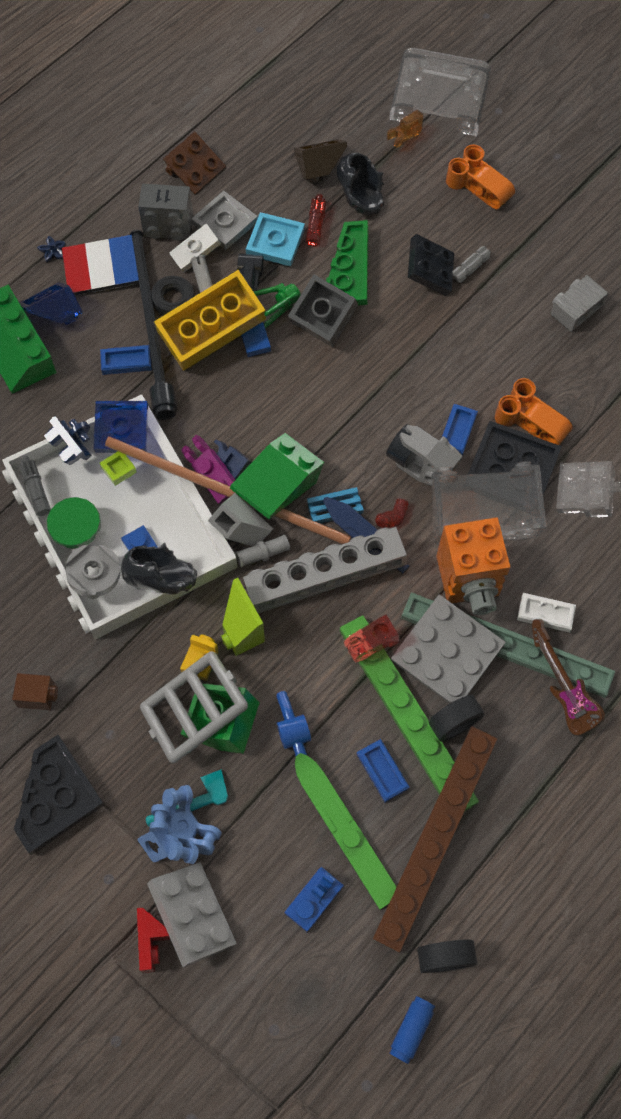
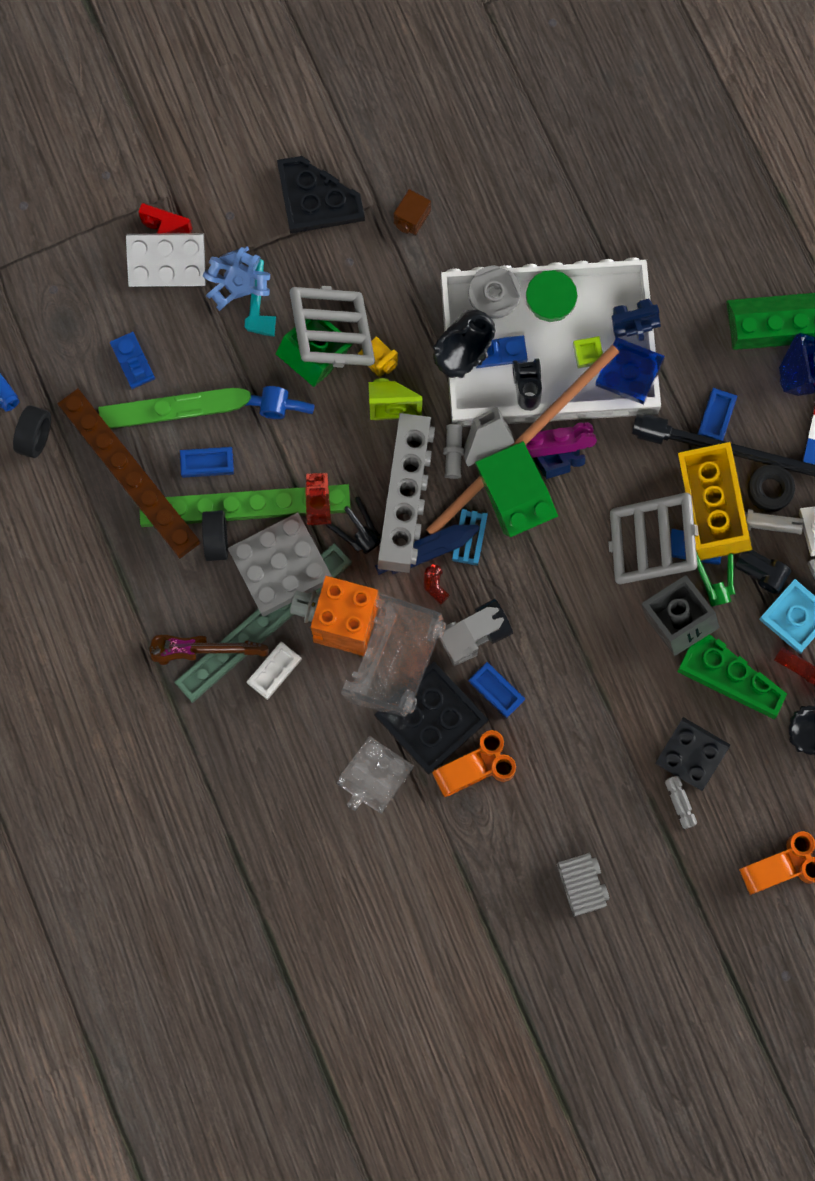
camera: 115 degrees right, 10 degrees up
(34, 486) = (609, 276): dark grey piece -> none
(170, 505) = (527, 379): none -> black piece
(287, 332) = (668, 566): none -> light grey bar
(381, 590) = (366, 538): none -> black plant

